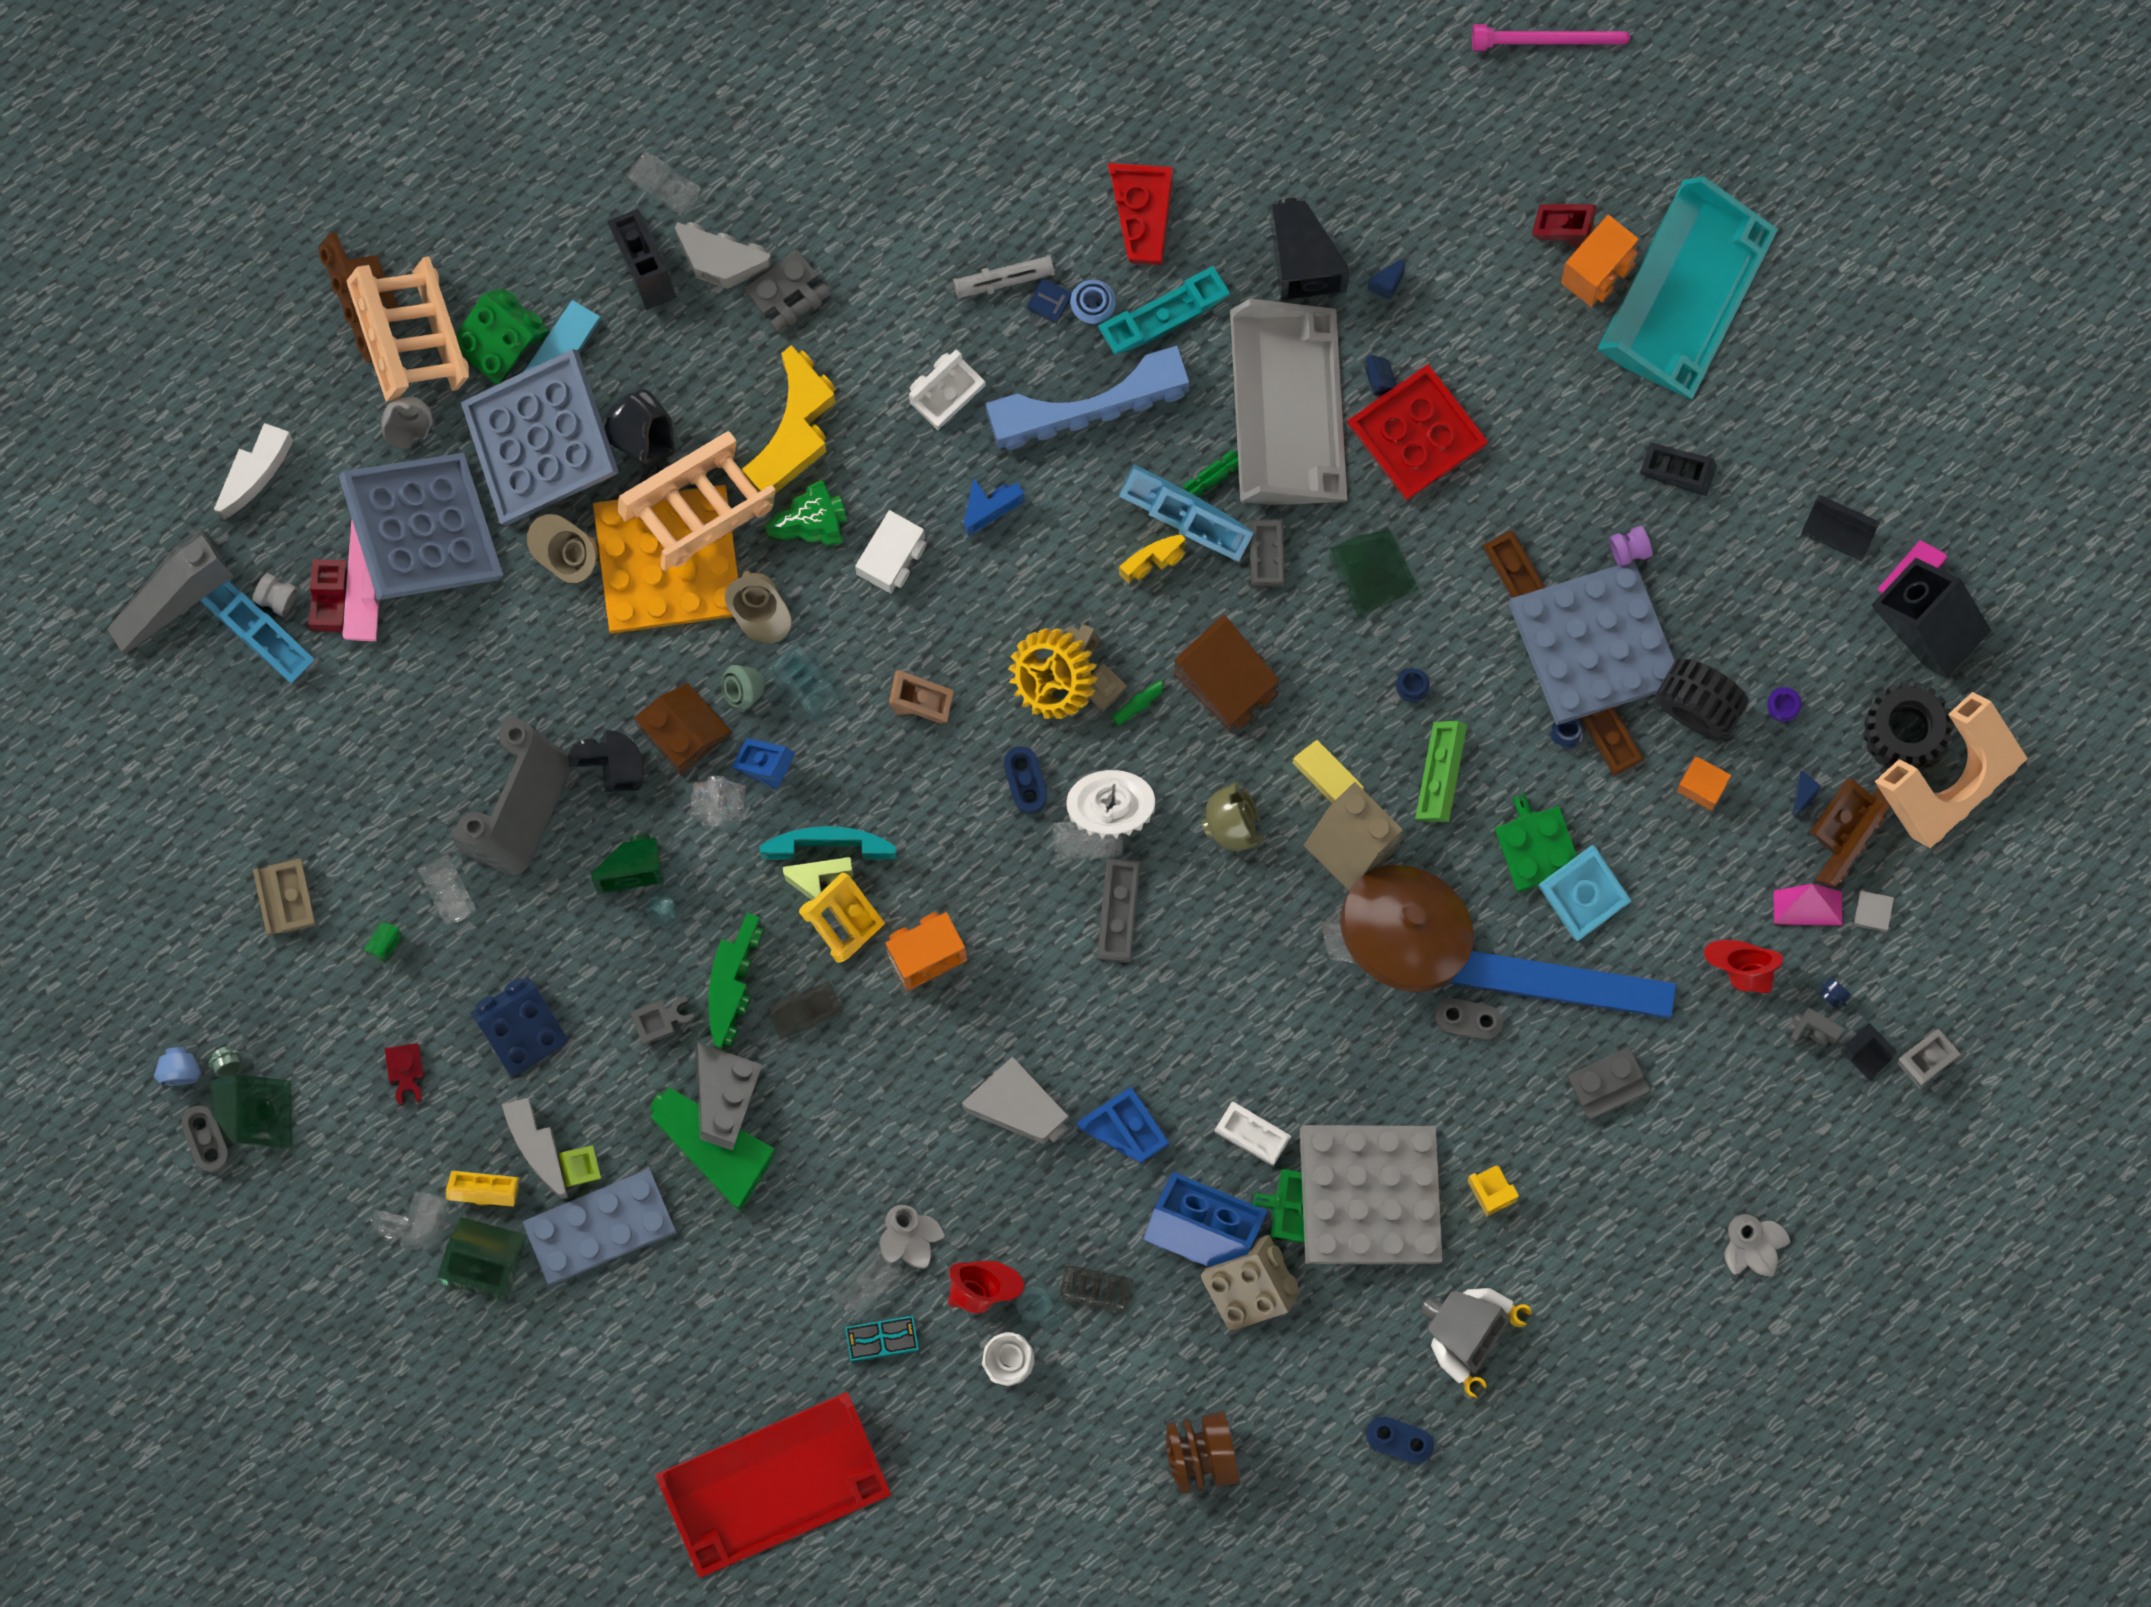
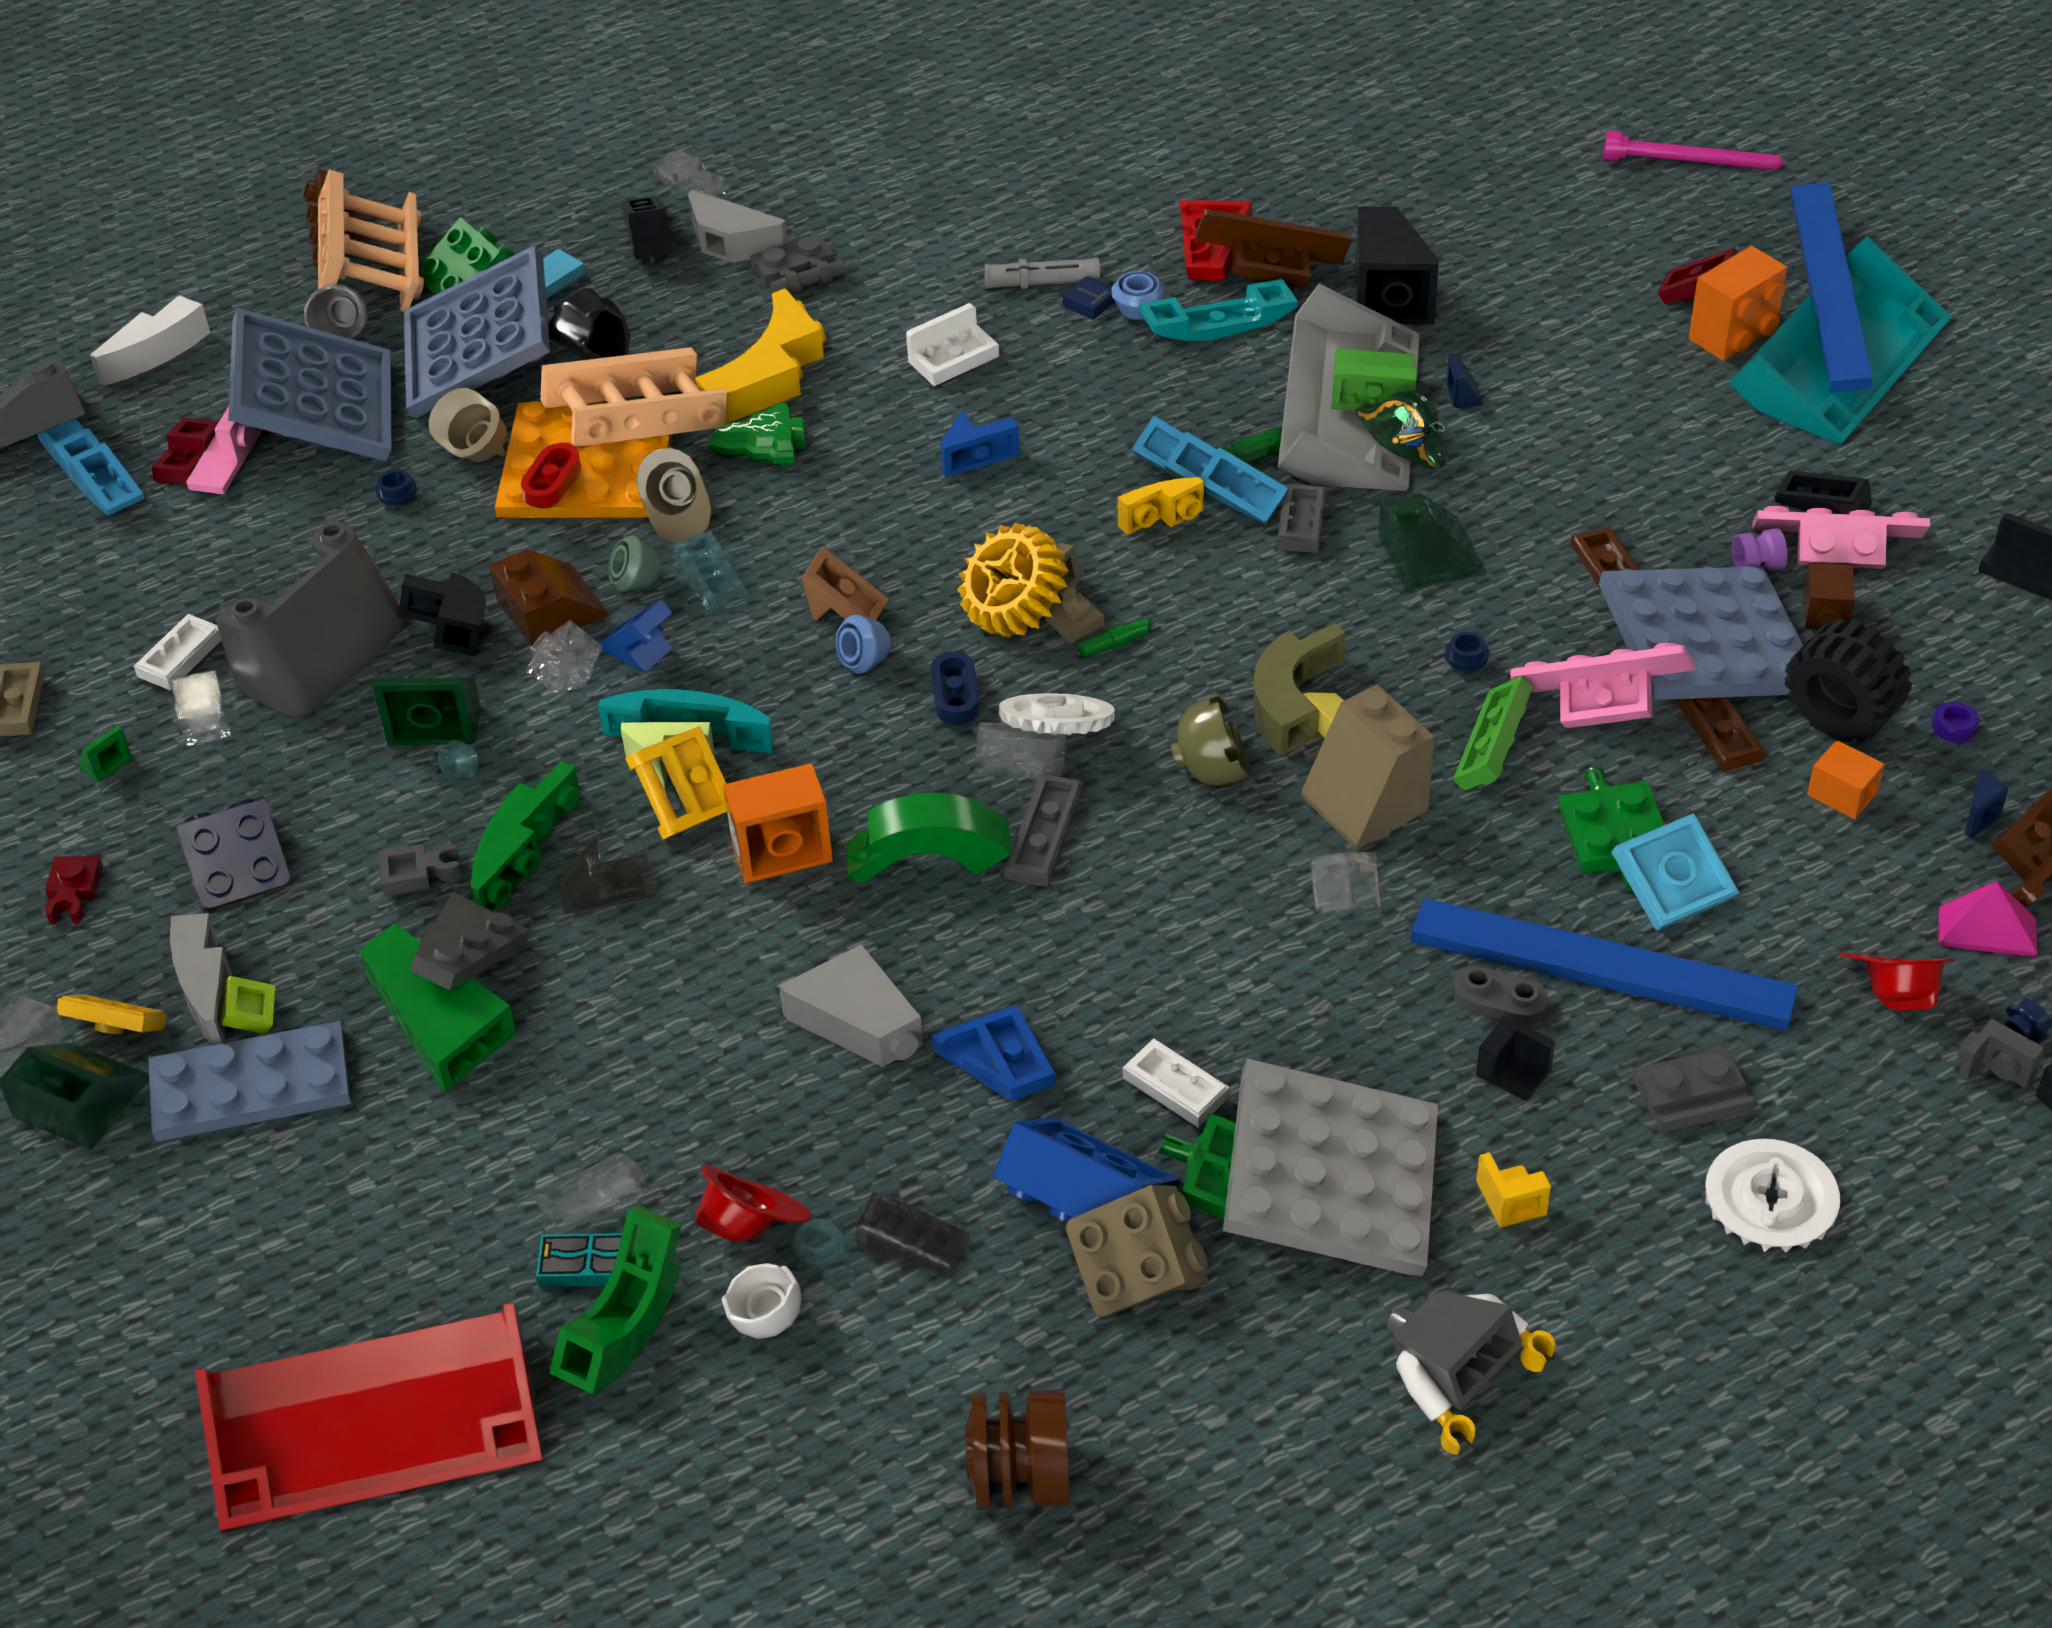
camera: 10 degrees right, 30 degrees down
(275, 594) = (126, 438): light grey wheel -> none
(404, 826) = (178, 651): none -> white plate
(519, 618) = (395, 487): none -> dark blue plate
(652, 604) = (551, 475): none -> red plate
(891, 552) = (847, 470): white piece -> none
(909, 1242) = (665, 1139): light grey plate -> none
(917, 1385) = (615, 1328): none -> green arch
(945, 747) = (862, 643): none -> medium blue cone
(1022, 418) = (1040, 378): medium blue arch -> none
(1038, 941) = (929, 825): none -> green arch
(1200, 236) = (1272, 248): none -> reddish brown bracket
(1226, 675) = (1225, 602): reddish brown slope -> none
(1273, 763) = (1279, 708): none -> olive arch
(1306, 386) = (1370, 377): none -> bright green bracket
(1336, 445) = (1406, 427): none -> clear green hat
(1387, 280) = (1483, 308): dark blue slope -> none
(1399, 1441) = (1329, 1493): dark blue plate -> none
(1406, 928) = (1426, 871): reddish brown dish -> none
(1417, 432) = (1506, 435): red plate -> none
(1485, 1080) = (1515, 1058): none -> black panel
(1520, 725) = (1606, 686): none -> bright pink bracket
(1573, 727) = (1666, 716): dark blue plate -> none
(1675, 224) = (1830, 288): none -> blue tile
(1684, 1150) = (1803, 1182): none -> white gear
(1685, 591) = (1828, 594): none -> reddish brown brick
(1693, 520) = (1841, 538): none -> bright pink bracket
(1758, 1249) = (1908, 1314): light grey plate -> none

